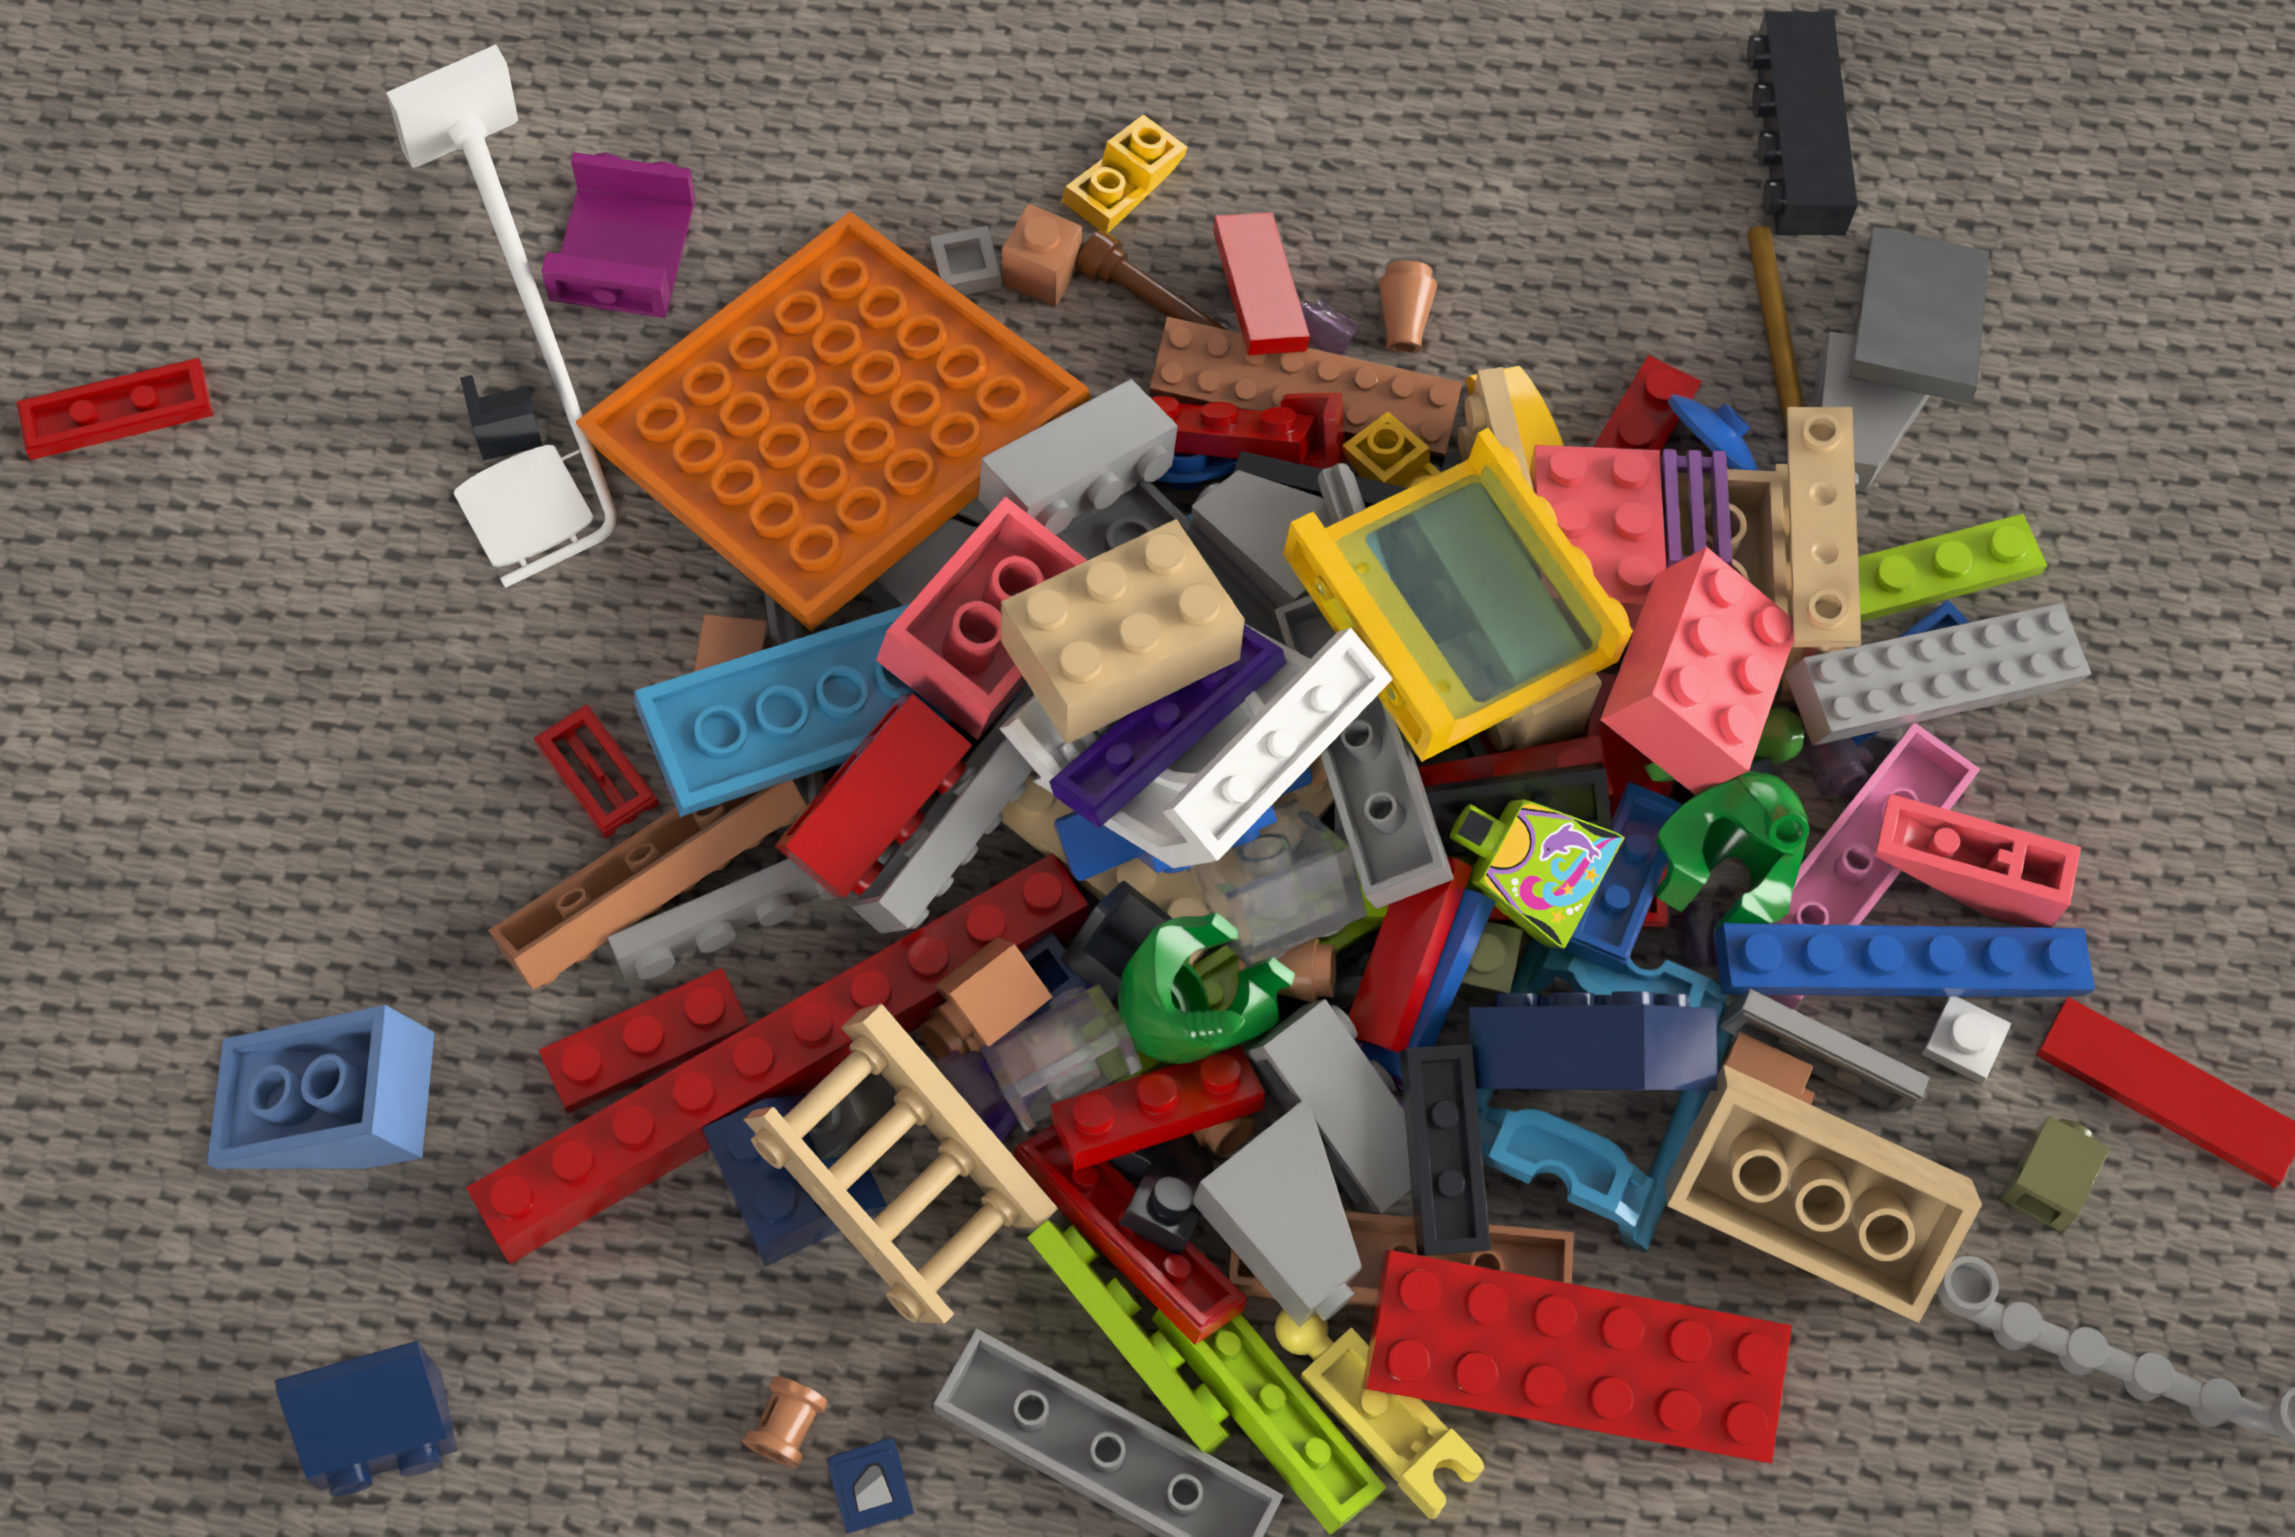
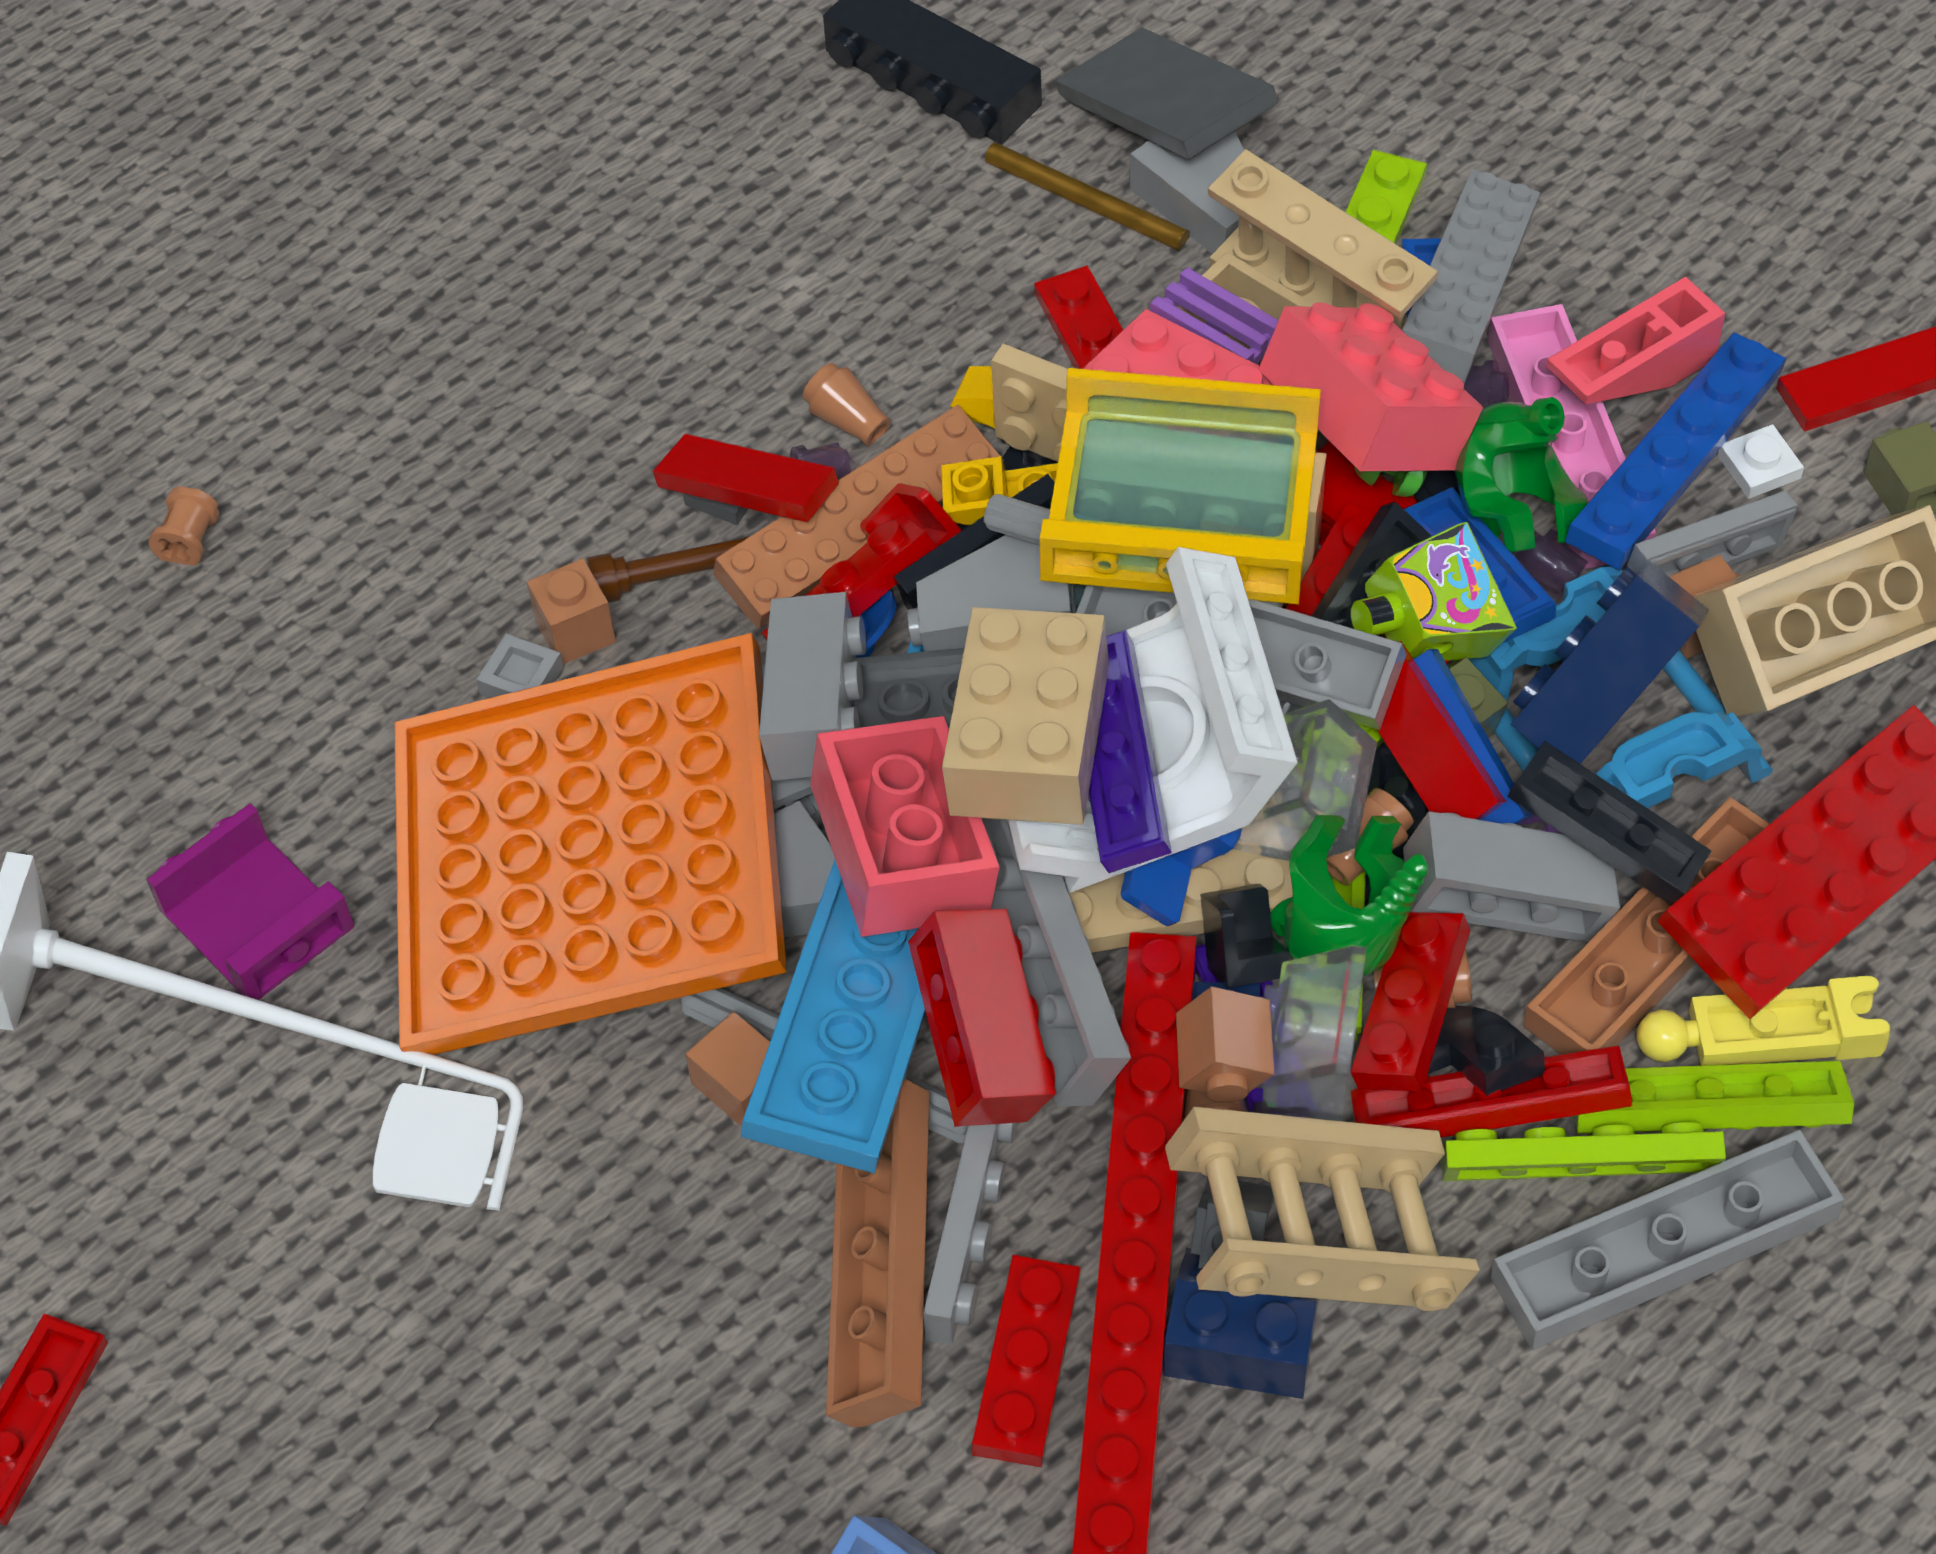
camera: 45 degrees left, 10 degrees down
(501, 421) = (341, 1105): black panel -> none
(624, 811) = (741, 1267): red tile -> none
(785, 1421) = (1461, 1460): nougat bush -> none
(870, 1485) = (1563, 1434): dark blue slope -> none
(1130, 169) = (543, 515): yellow slope -> none
(1286, 1217) = (1580, 966): light grey slope -> none
(1716, 429) = (1147, 272): blue dish -> none

